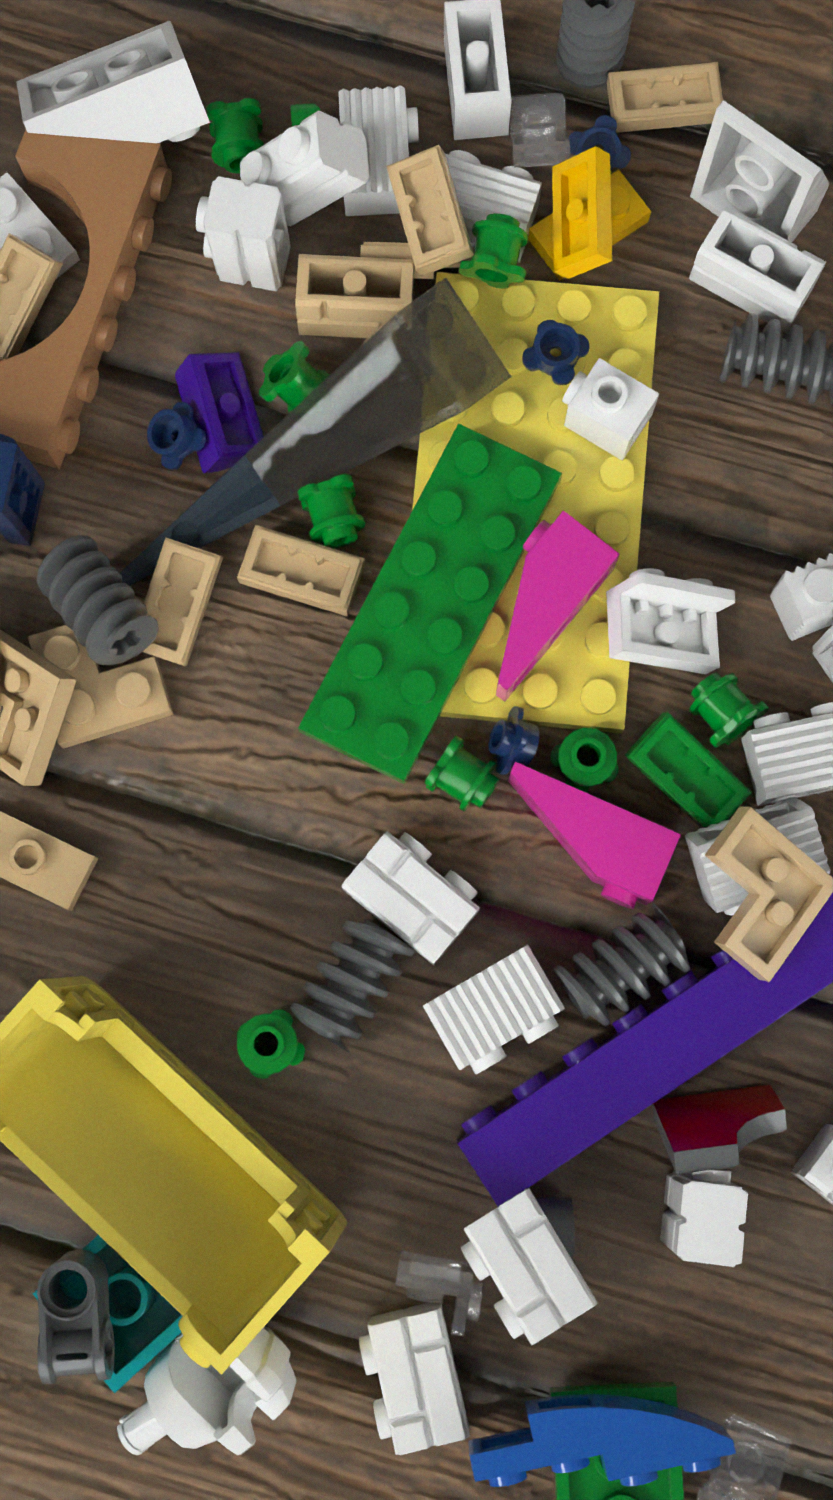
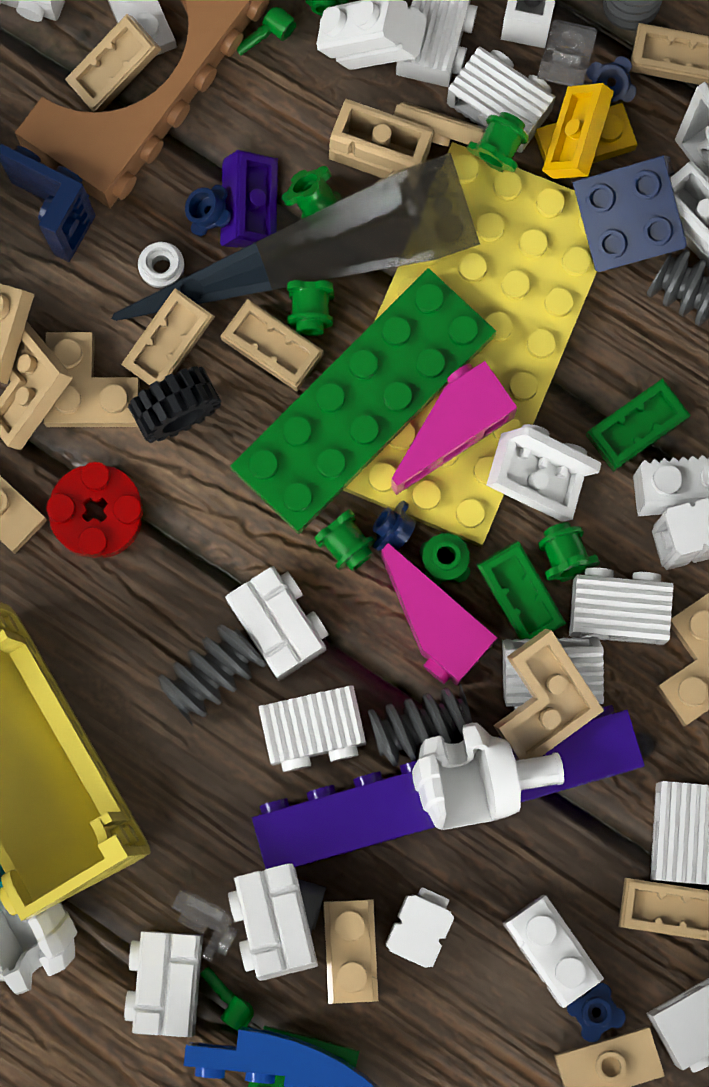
camera: 15 degrees right, 0 degrees up
(95, 601) = (105, 322): dark grey piece -> none
(132, 502) = (154, 253): none -> white plate
(141, 798) = (95, 538): none -> red plate
(184, 197) = (276, 22): none -> green hand
(208, 674) = (174, 404): none -> black tyre
(245, 232) = (310, 68): white brick -> none
(288, 1051) = (146, 708): green brick -> none
(430, 210) = (458, 94): tan plate -> none
(513, 1379) = (238, 1011): none -> green hand
(560, 336) = (526, 221): dark blue plate -> none
(608, 408) = (548, 291): white brick -> none
(627, 1267) = (350, 951): none -> tan brick
(674, 290) = (630, 213): none -> dark blue bracket
(713, 1127) = (450, 866): red tile -> none
(719, 1012) = (477, 778): none -> white piece
(758, 534) = (638, 425): none -> green plate

